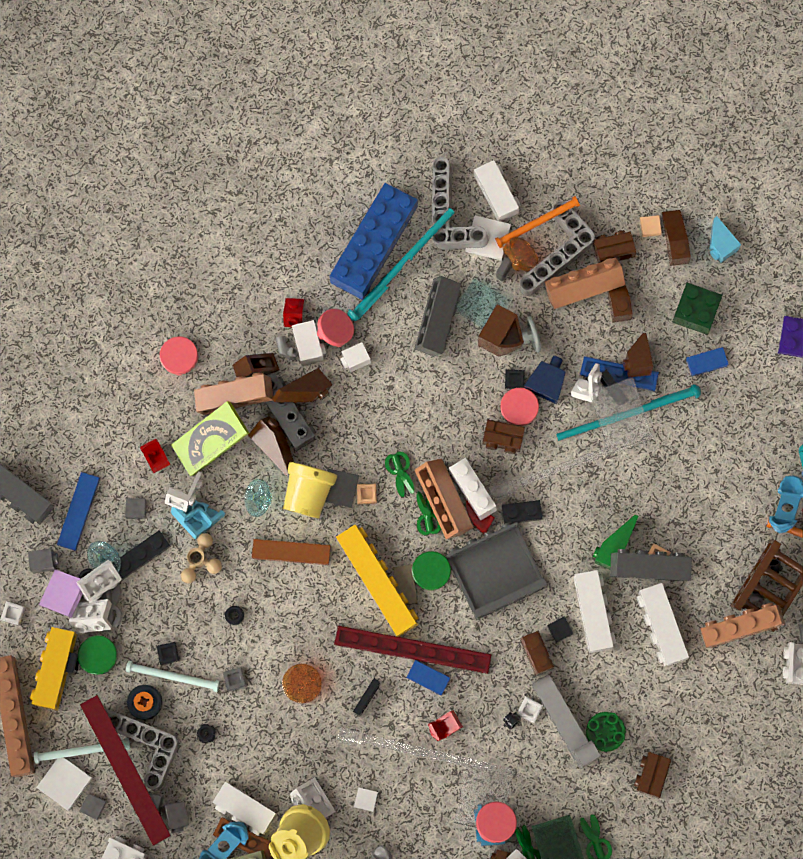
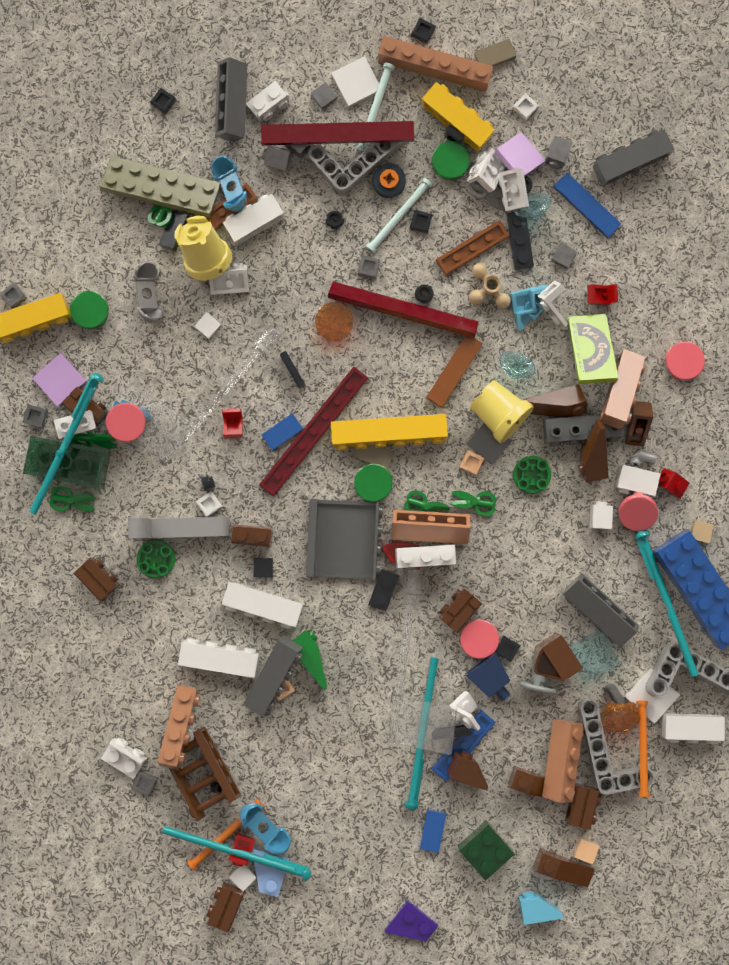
camera: 110 degrees right, 10 degrees up
(169, 594) = (472, 248): none -> dark orange tile
(259, 626) = (403, 309): none -> dark red tile
(322, 266) = (702, 531): none -> tan tile
(349, 436) = (531, 474): none -> green tile

